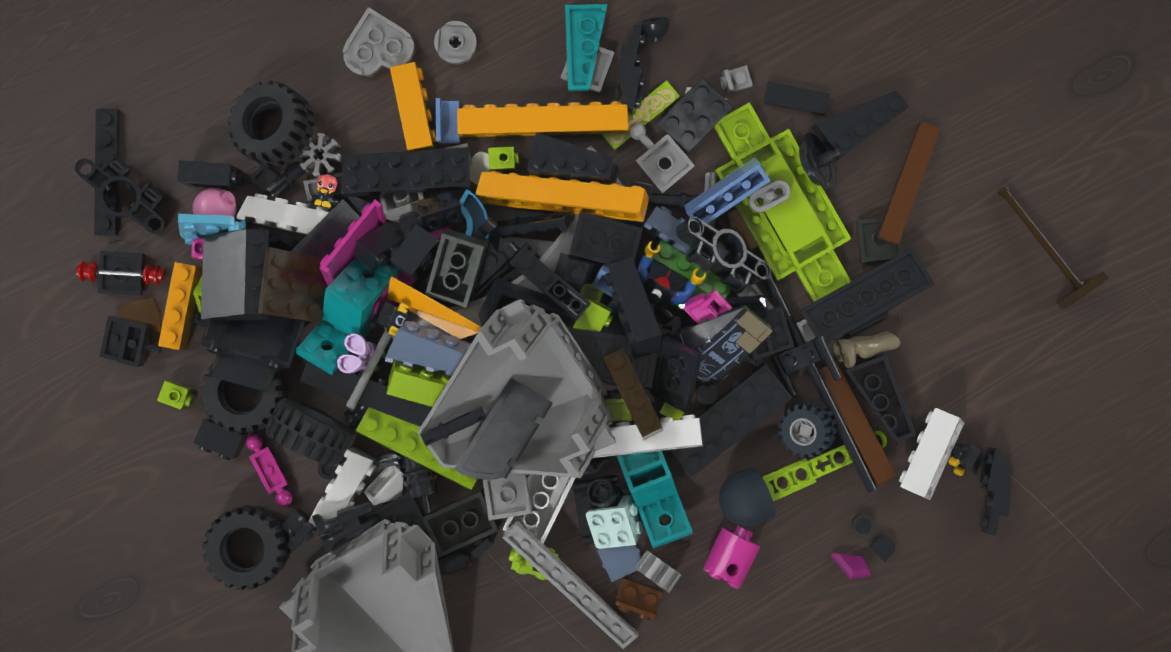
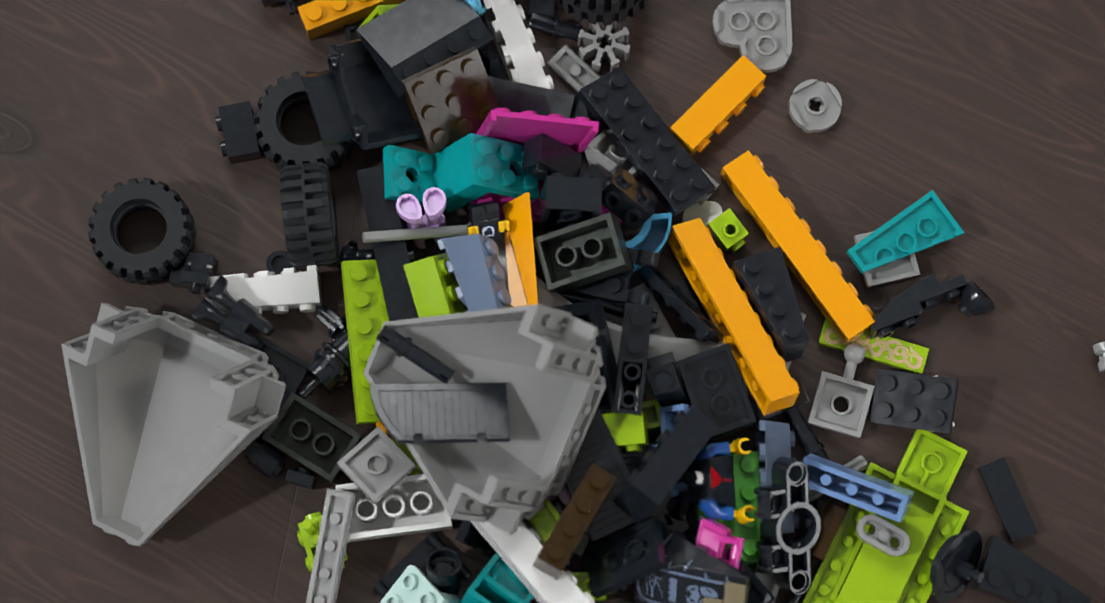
camera: 50 degrees right, 10 degrees down
(176, 395) = (256, 59): lime brick -> none
(269, 470) = (238, 203): dark pink plate -> none
(327, 189) = (573, 73): animal -> none
(386, 486) = (300, 336): white slope -> none
(447, 122) = (726, 149): medium blue panel -> none
(736, 79) = (981, 422): light grey bracket -> none

